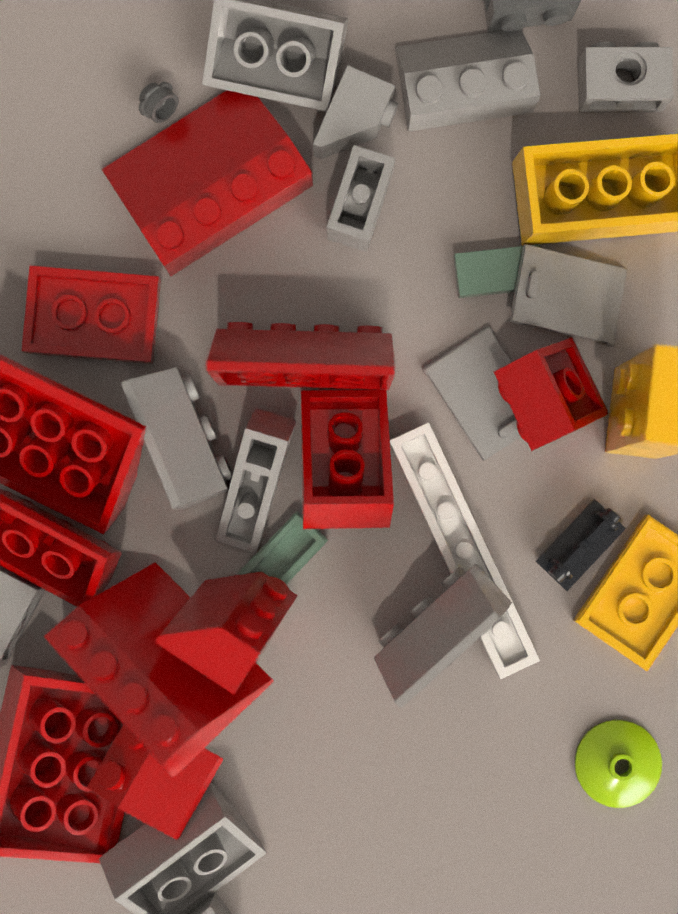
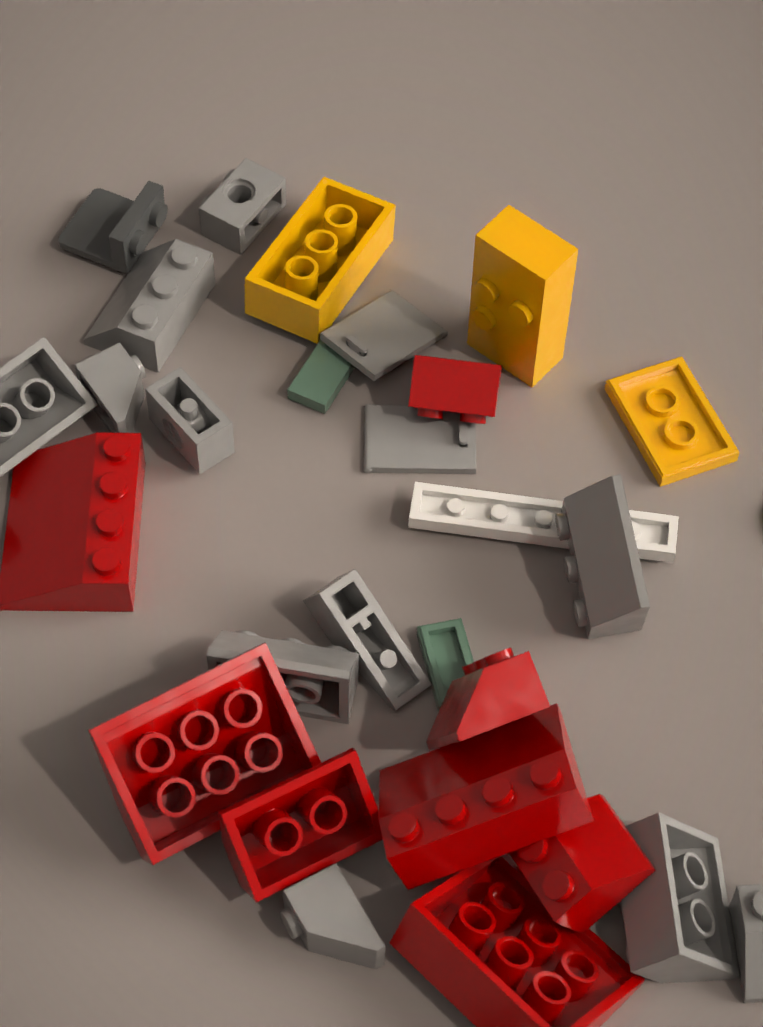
camera: 55 degrees left, 30 degrees down
(91, 314) = (114, 675): red plate -> none
(302, 358) = (293, 534): red slope -> none
(346, 459) = (406, 560): red slope -> none
(581, 544) = (597, 438): black hinge -> none

